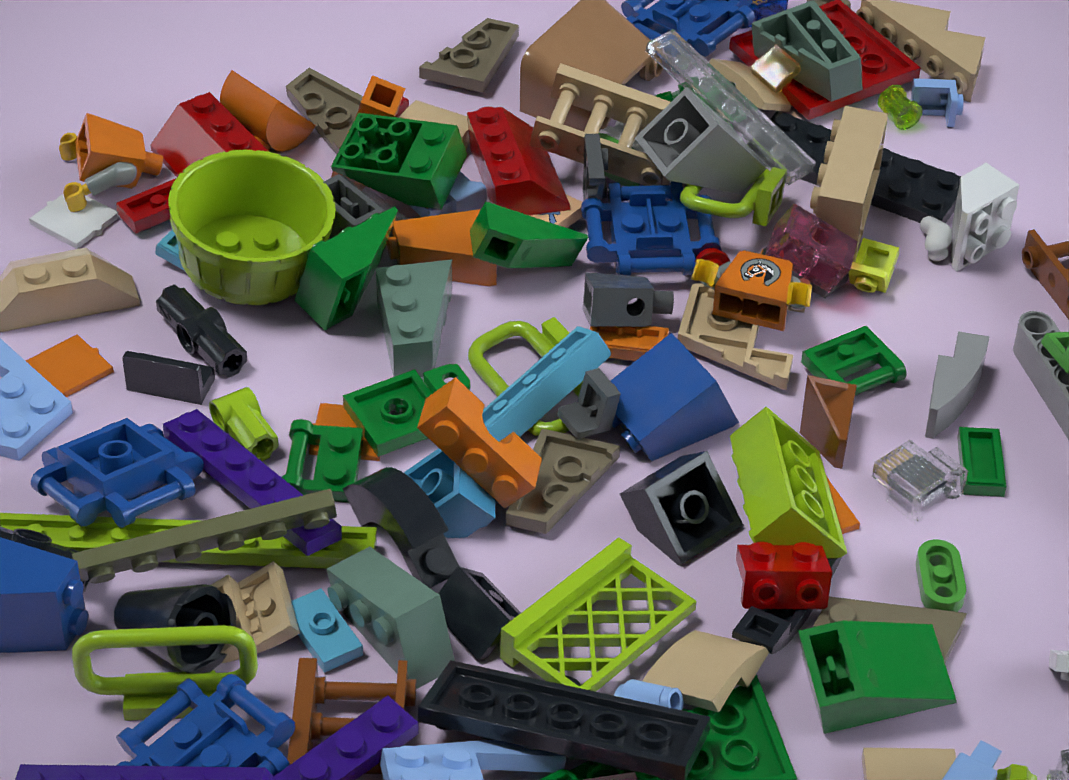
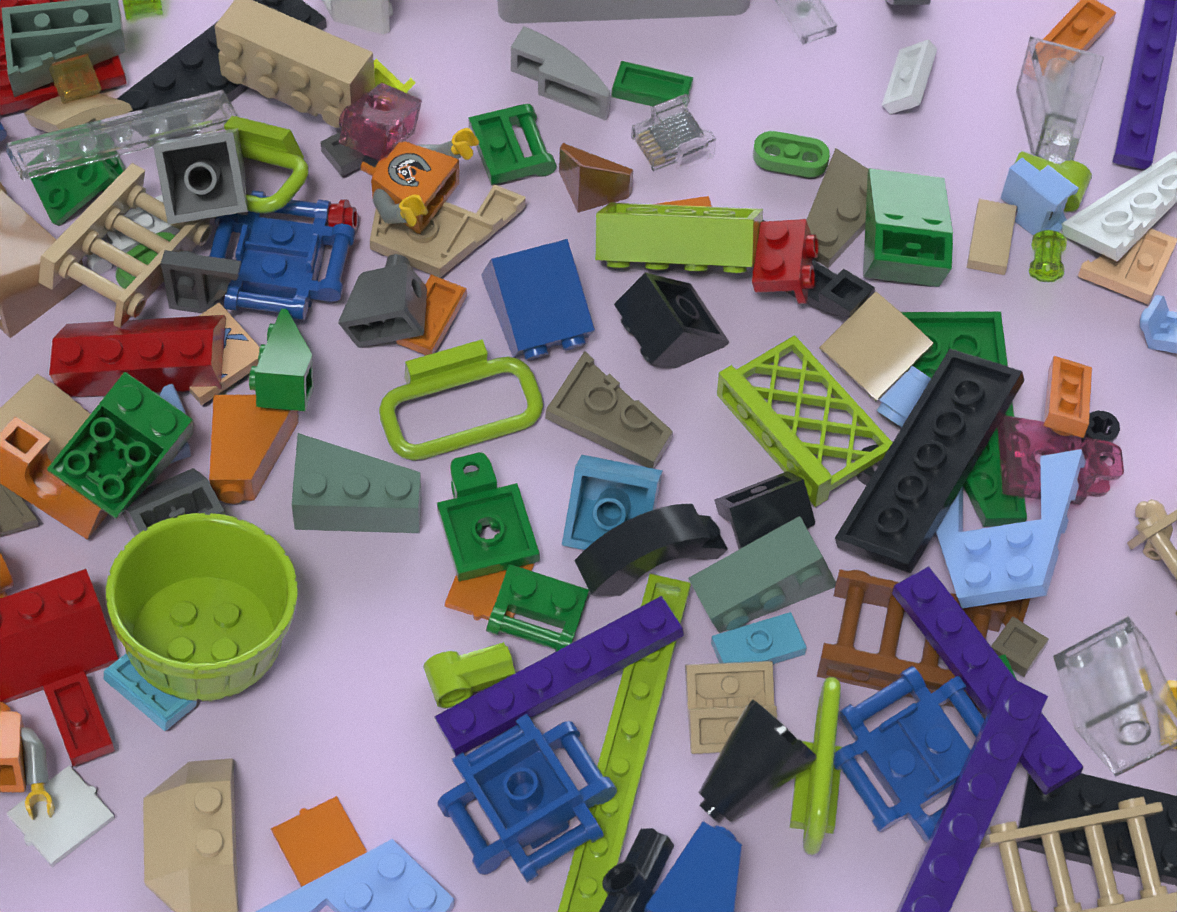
camera: 80 degrees left, 15 degrees up
(167, 377) = (372, 739): black panel -> none
(201, 330) = (312, 697): black piece -> none
(222, 532) = (672, 710): olive plate -> none
(342, 269) = (287, 515): green slope -> none
(456, 426) = (605, 449): orange arch -> none
(545, 383) = (496, 401): medium azure slope -> none
(594, 408) = (546, 355): dark grey bracket -> none
(937, 239) = (352, 27): white arm -> none

